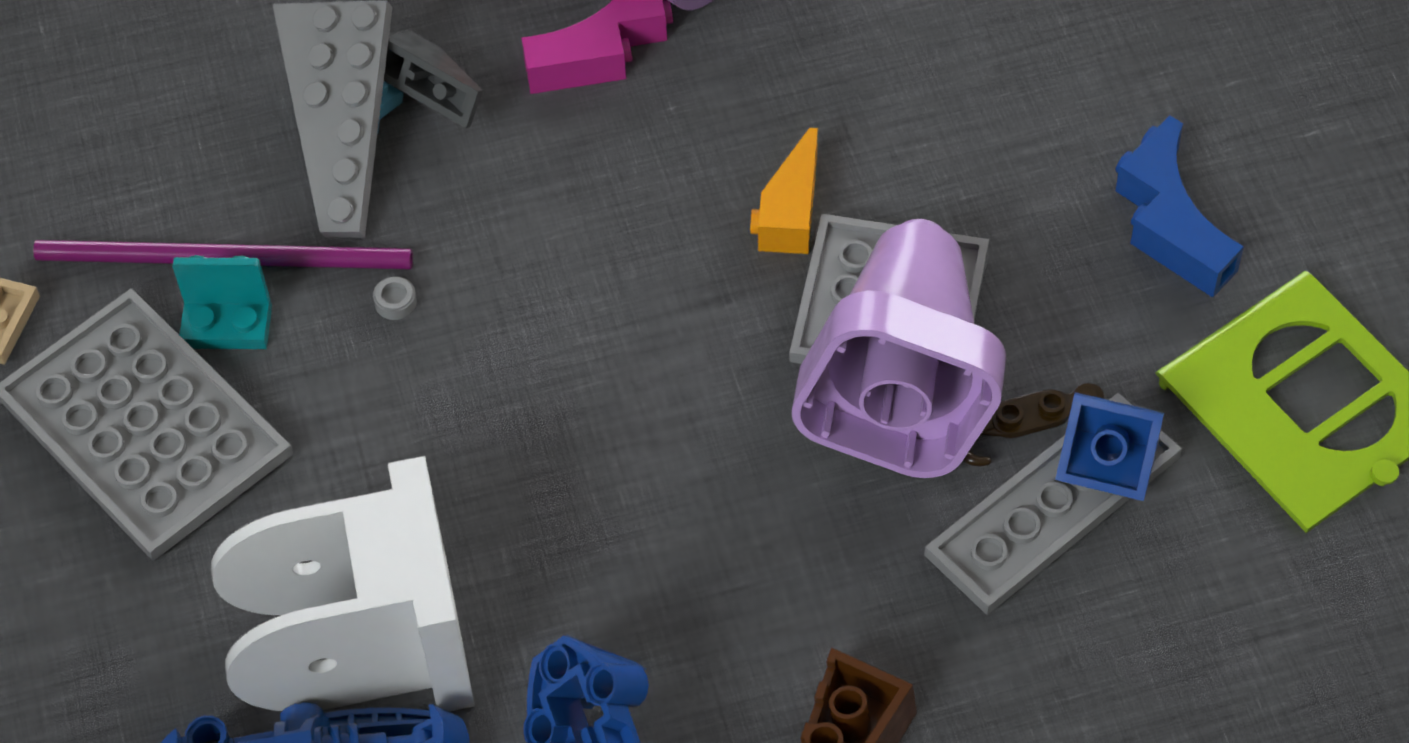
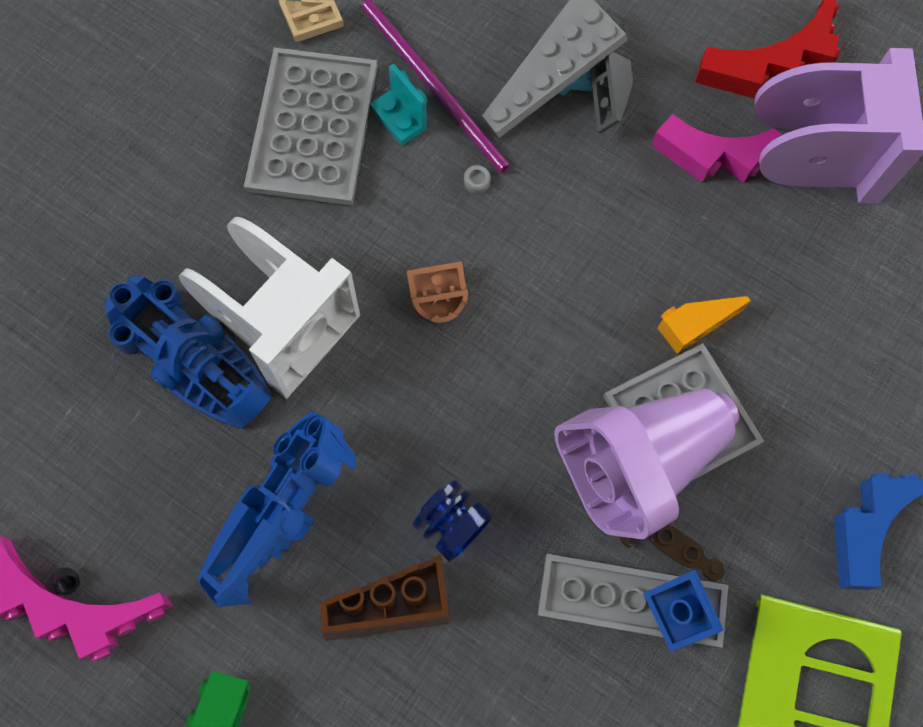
camera: 45 degrees right, 15 degrees up
(499, 436) = (438, 291): none -> nougat slope
(801, 609) = (452, 520): none -> clear blue wheel

